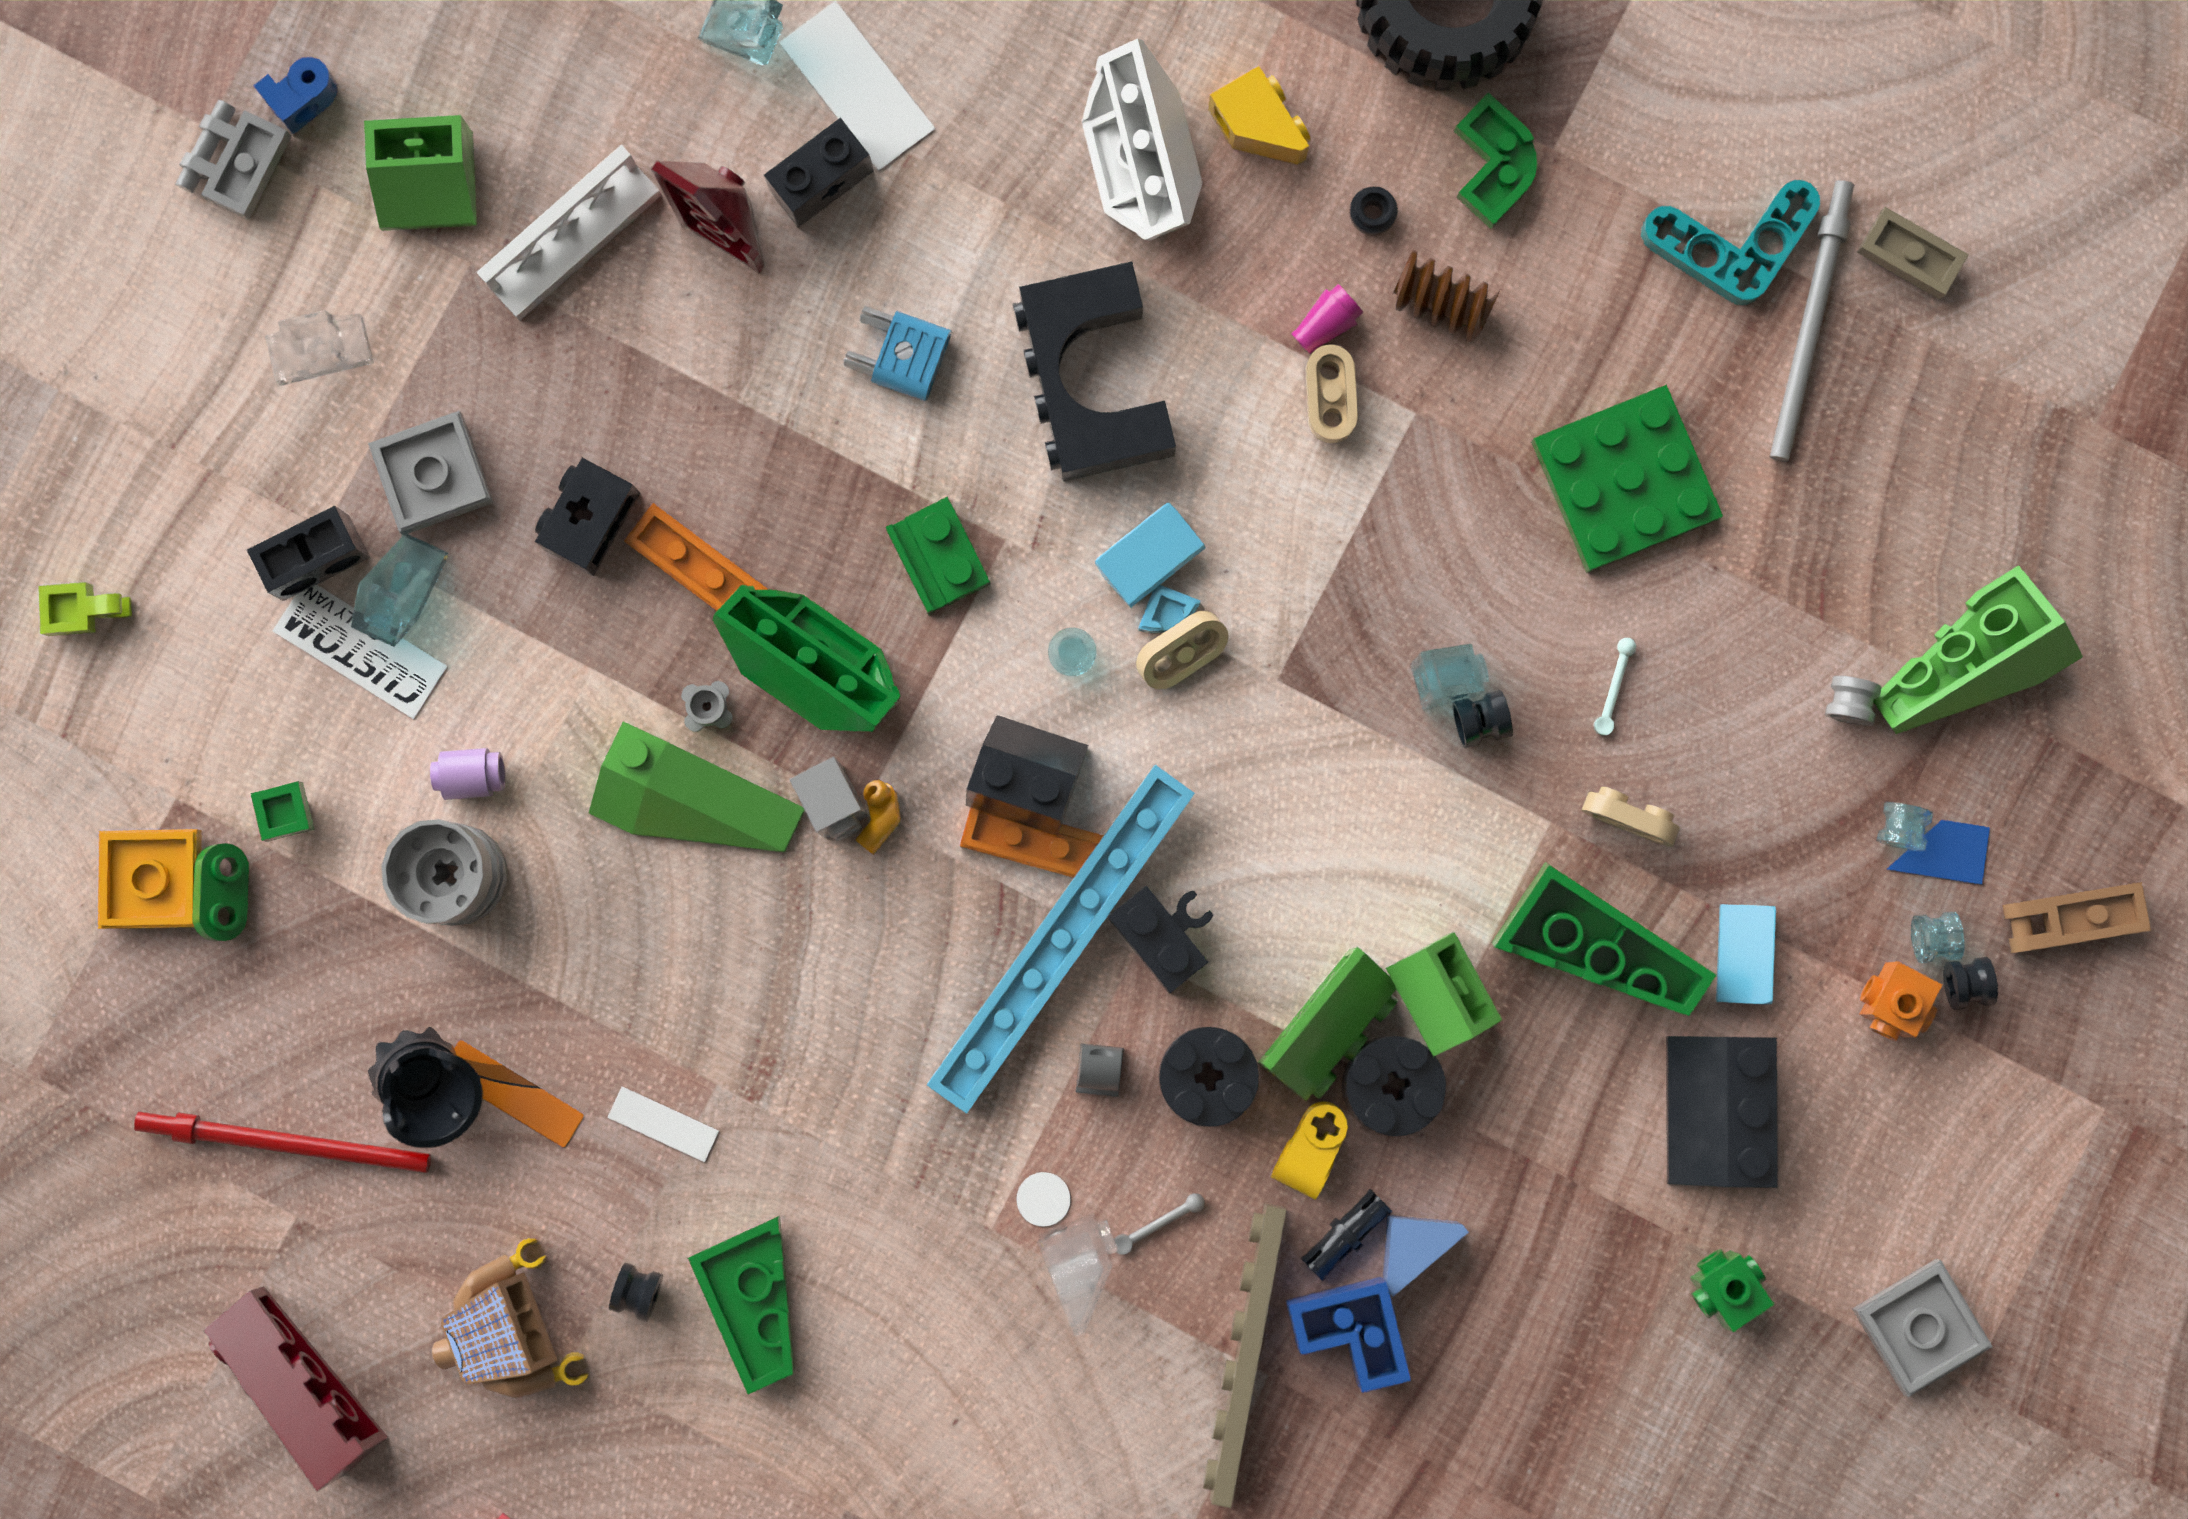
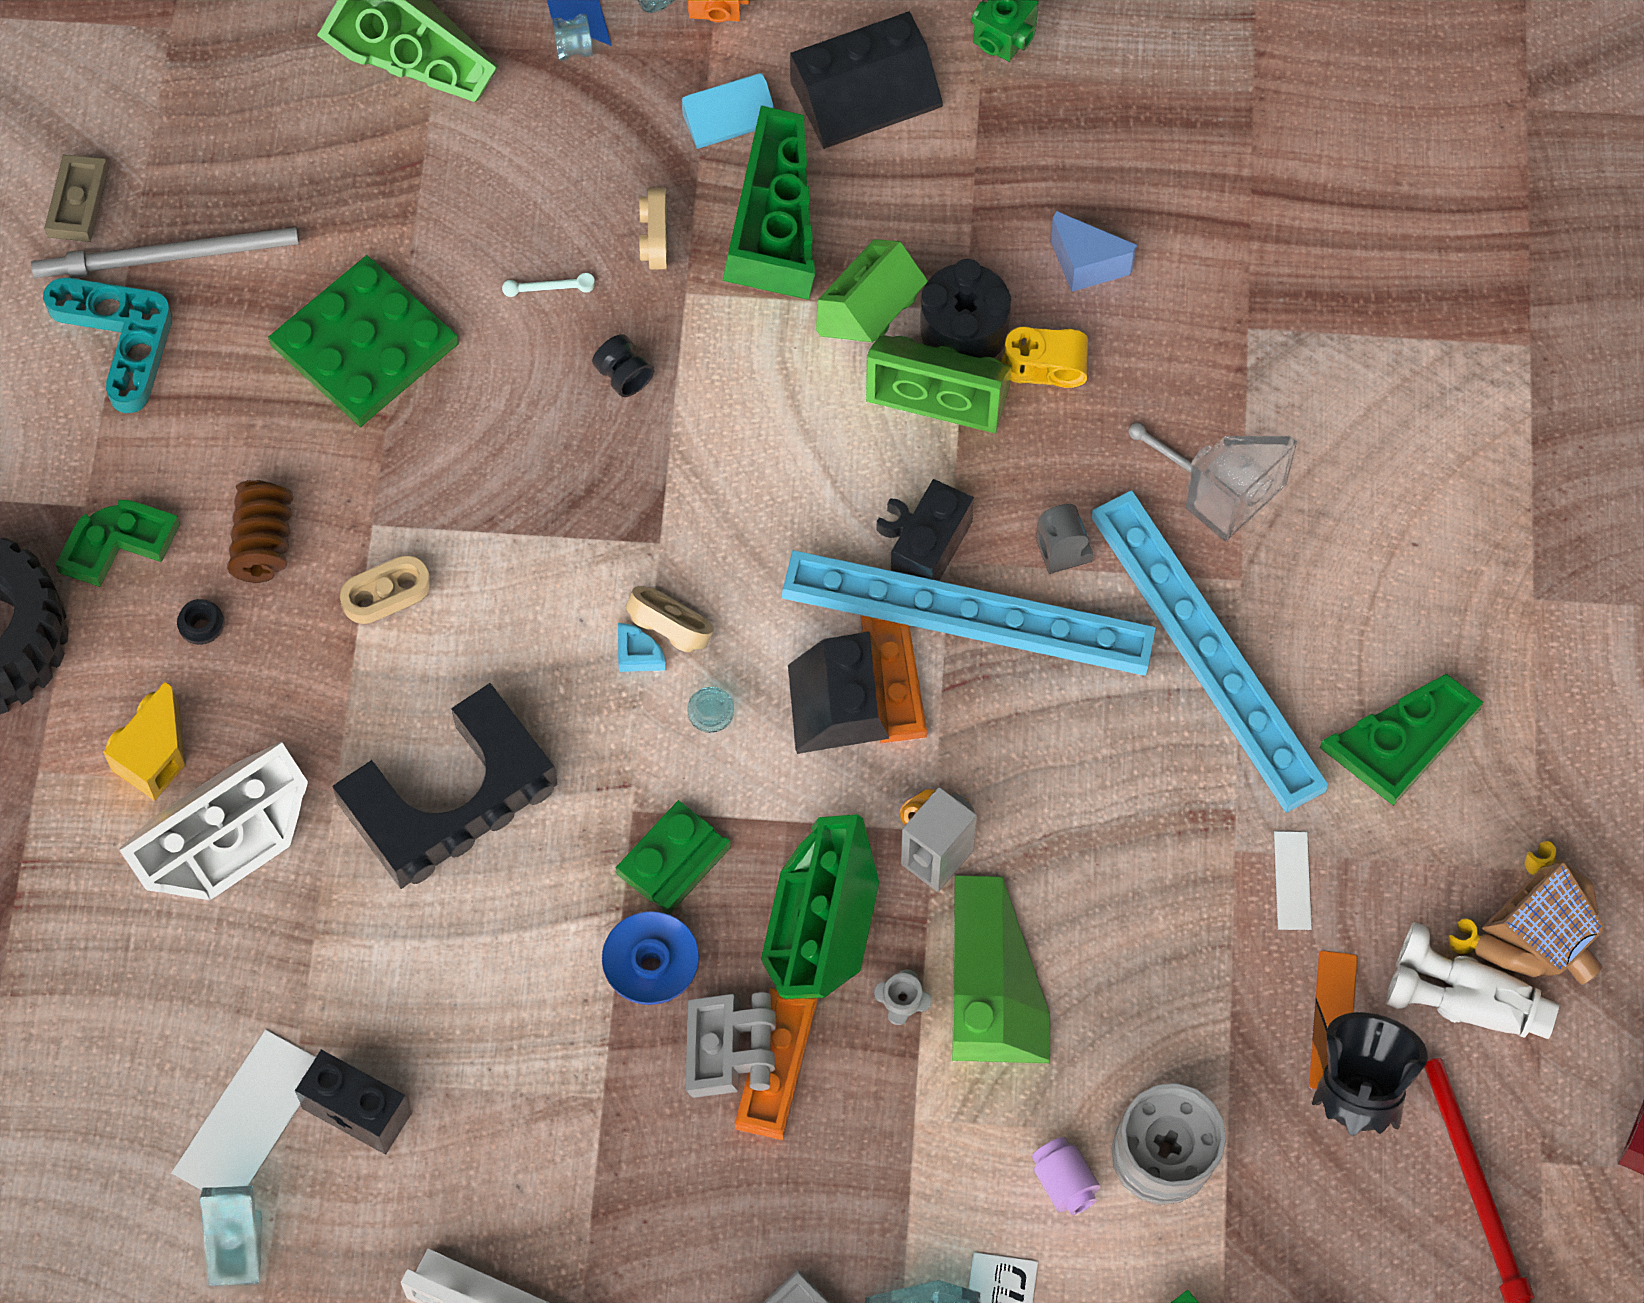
camera: 115 degrees left, 20 degrees down
(465, 1234) = (1478, 992): none -> white piece
(584, 541) = (750, 1165): black brick -> none
(635, 1292) = (1447, 830): black wheel -> none
(712, 207) = (429, 1170): dark red wedge -> none
(730, 513) = (714, 1044): none -> light grey plate
(836, 466) = (646, 937): none -> blue dish
(908, 355) = (496, 957): dark azure piece -> none
(924, 1155) = (1209, 652): none -> medium azure plate
(1043, 1199) = (1196, 549): white sticker -> none
(1149, 554) = (596, 676): medium azure slope -> none
(1230, 1094) = (1028, 452): black brick -> none
(1240, 1374) = (1238, 340): dark tan plate -> none
(1327, 319) = (316, 617): dark pink cone -> none
(1346, 1234) = (1104, 309): black pin -> none
(1358, 1317) = (1172, 266): blue brick -> none
(1448, 675) = (601, 402): clear light blue slope -> none
(1853, 700) = (484, 107): light grey wheel -> none

